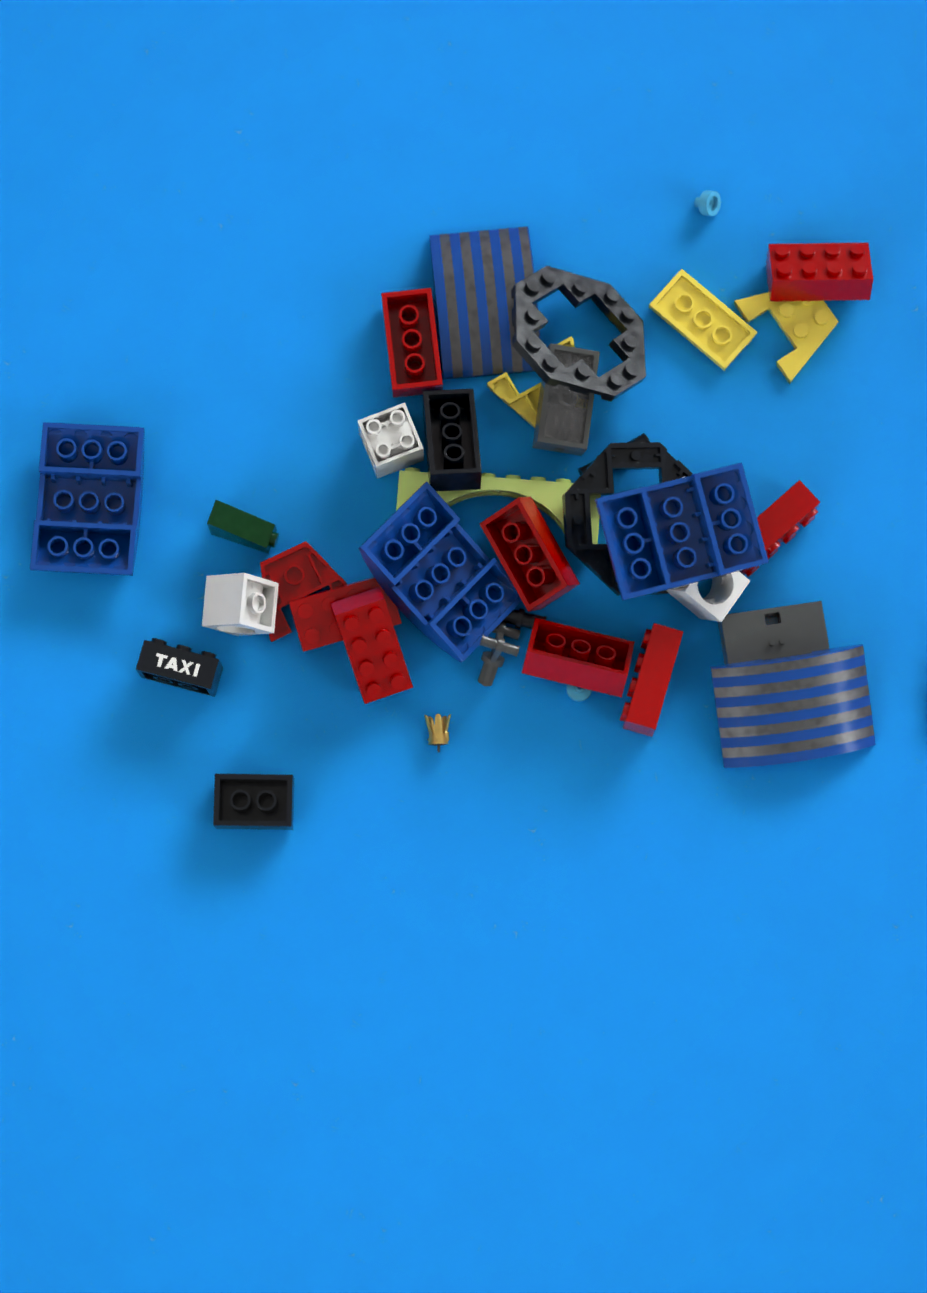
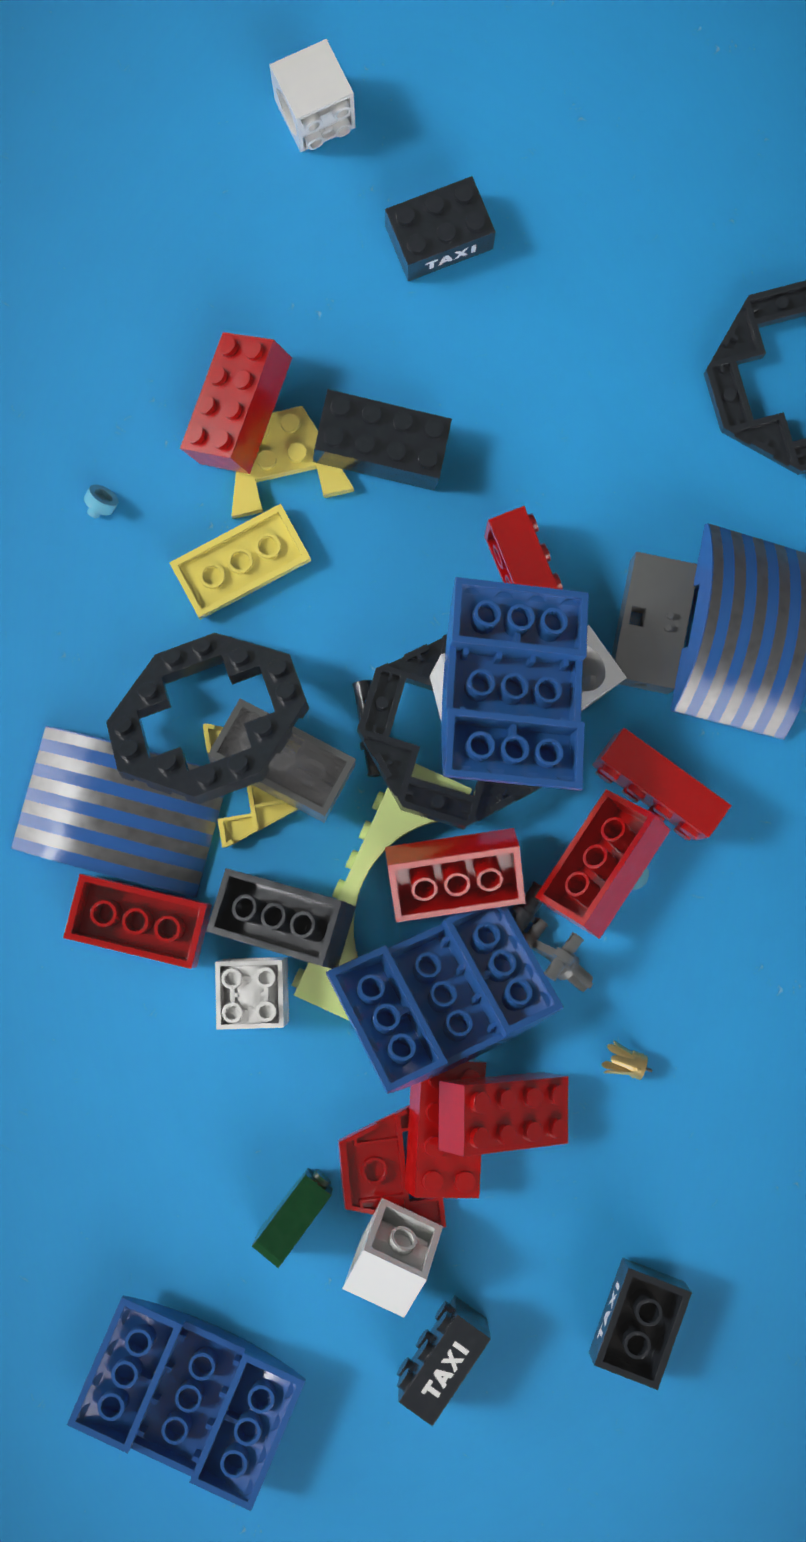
camera: 70 degrees left, 5 degrees up
(833, 387) = (381, 440): none -> black brick

